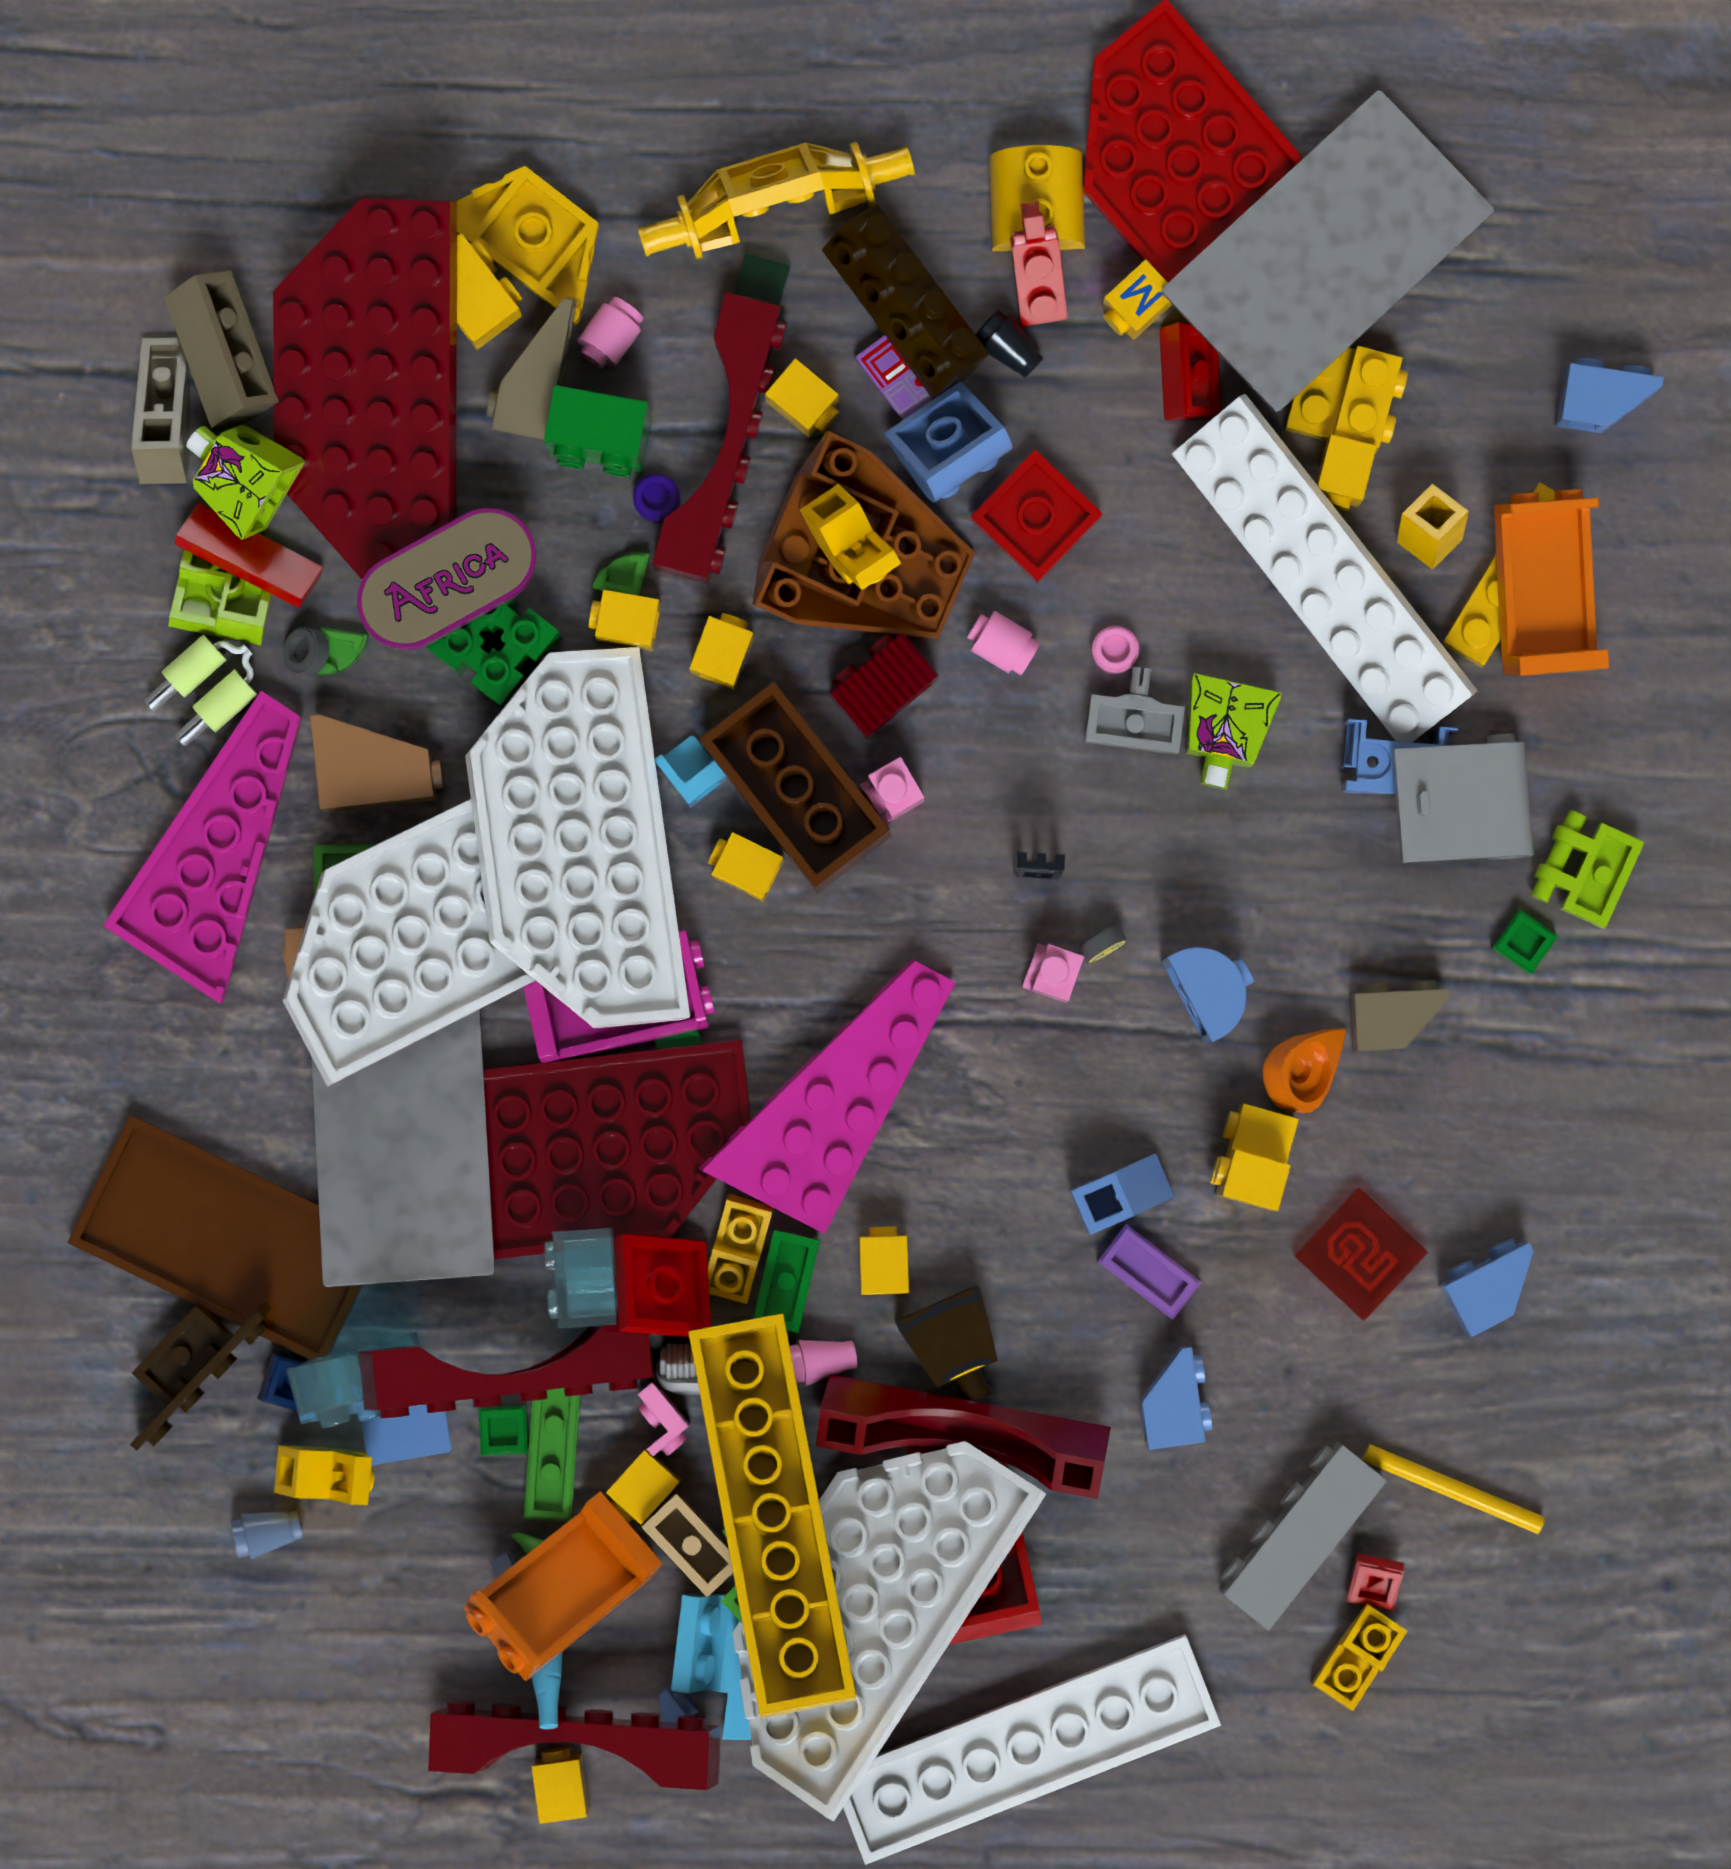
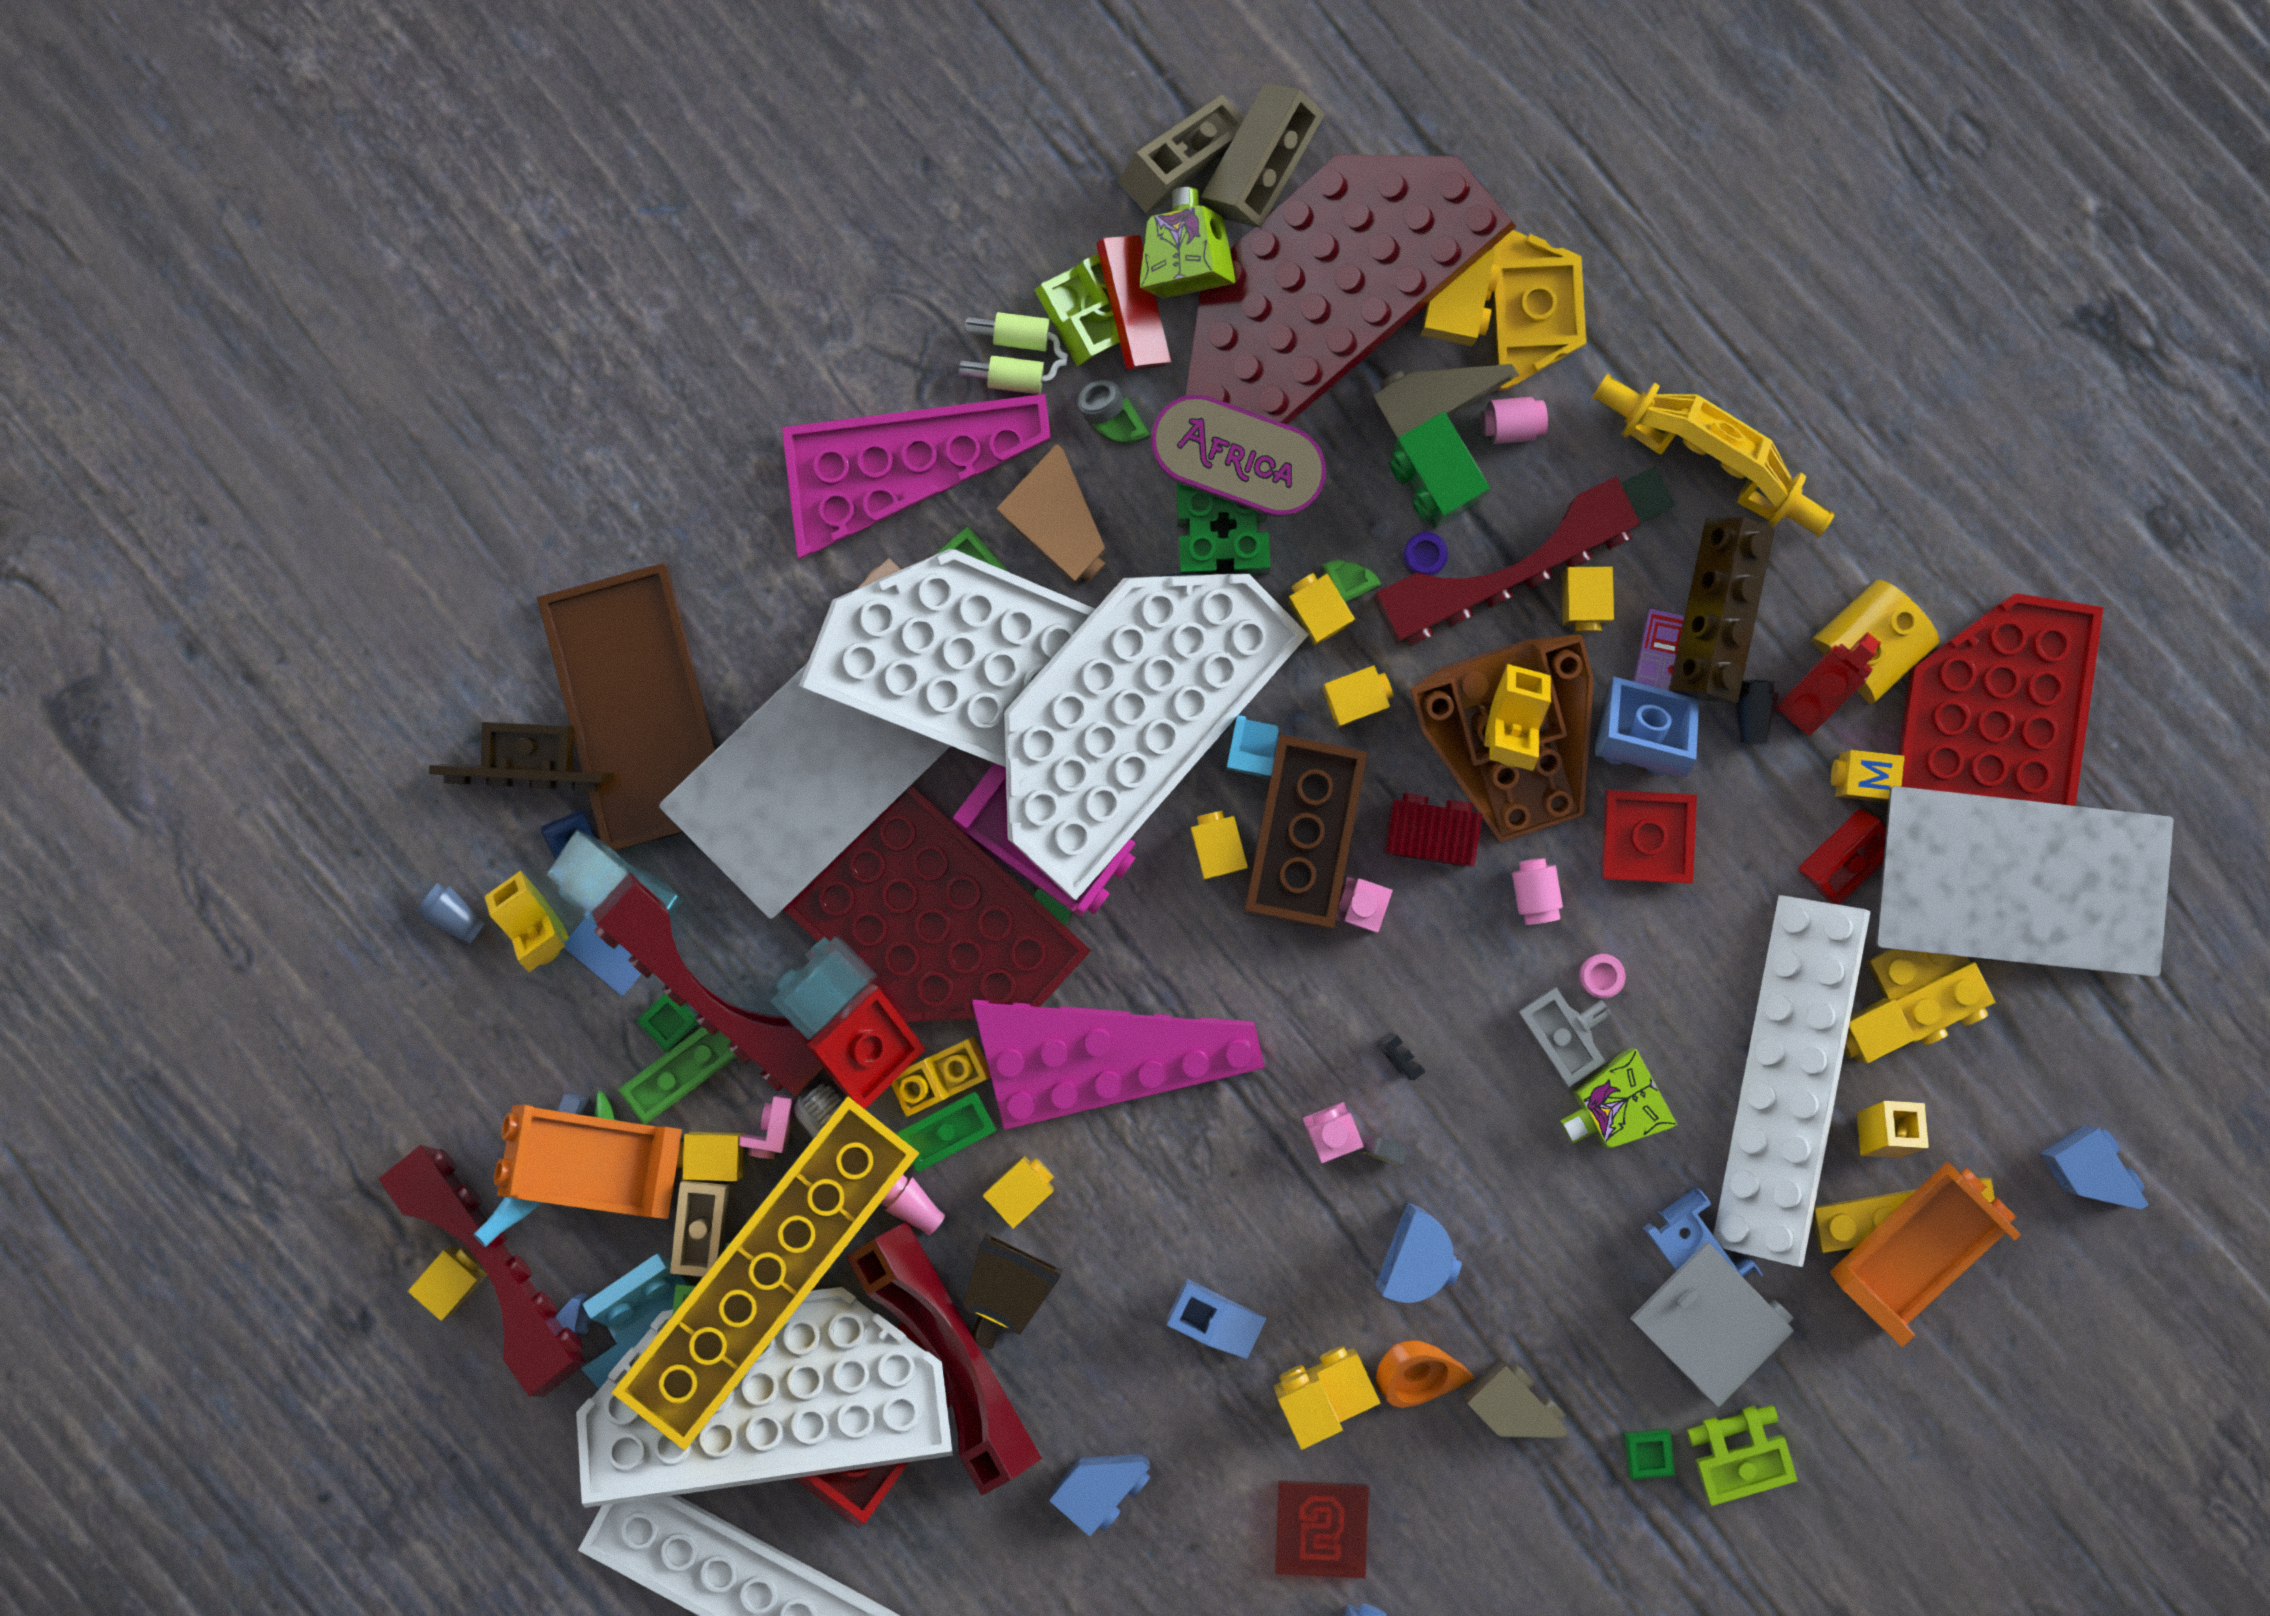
camera: 50 degrees right, 0 degrees up
(1149, 1271) = (1177, 1386): medium lavender tile -> none

